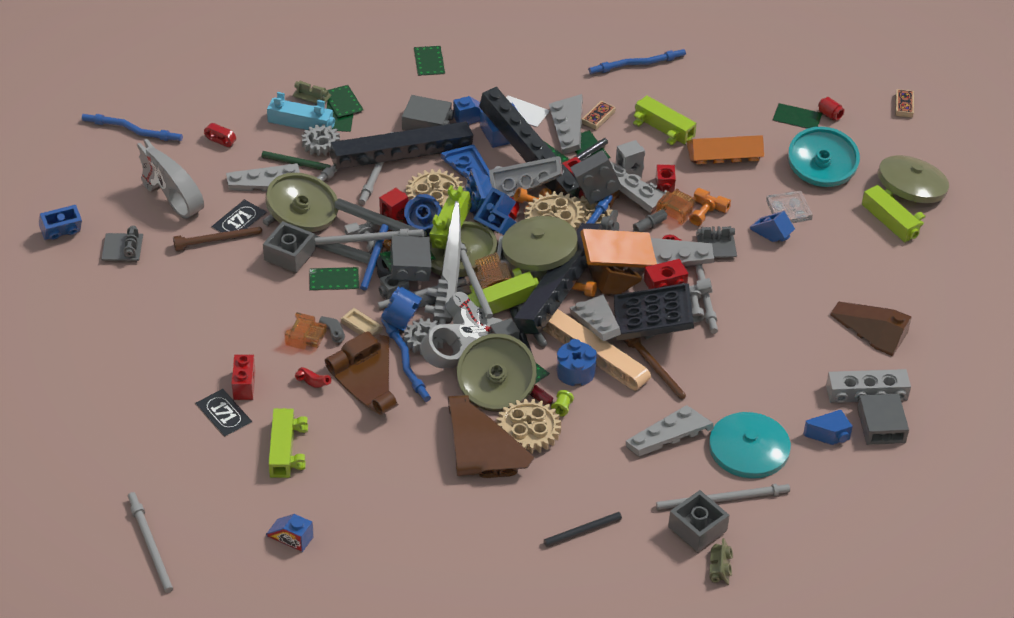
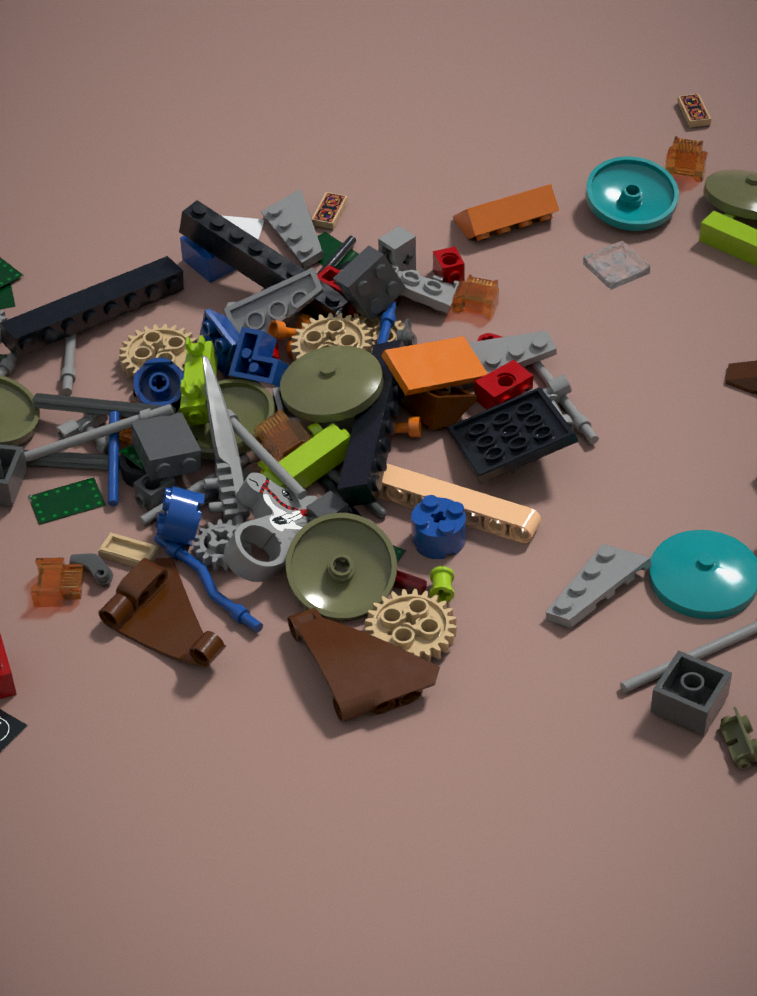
camera: 15 degrees left, 0 degrees up
(282, 443) = (82, 742): lime brick -> none
(292, 531) = (144, 866): blue slope -> none
(312, 378) = (91, 643): red arm -> none
(393, 204) = (116, 382): red brick -> none
(426, 112) = (109, 258): dark grey brick -> none
(429, 60) = (84, 194): dark green sticker -> none
(465, 159) = (183, 306): blue wing -> none
(466, 110) = (160, 242): blue slope -> none
(582, 529) = (539, 748): black bar -> none
(597, 317) = (441, 460): light grey wing -> none
(606, 66) = (315, 150): blue bar -> none
(636, 343) = (503, 482): reddish brown piece -> none
(650, 221) = (452, 323): dark grey axle -> none
(665, 120) = (416, 196): lime brick -> none
(708, 203) = (515, 285): orange bar -> none
(721, 240) = (549, 320): dark grey hinge -> none
(774, 227) = (609, 292): blue slope -> none
(797, 116) = (573, 155): dark green sticker -> none
(831, 108) = (612, 136): red brick -> none
(877, 140) = (687, 158): none -> clear orange piece

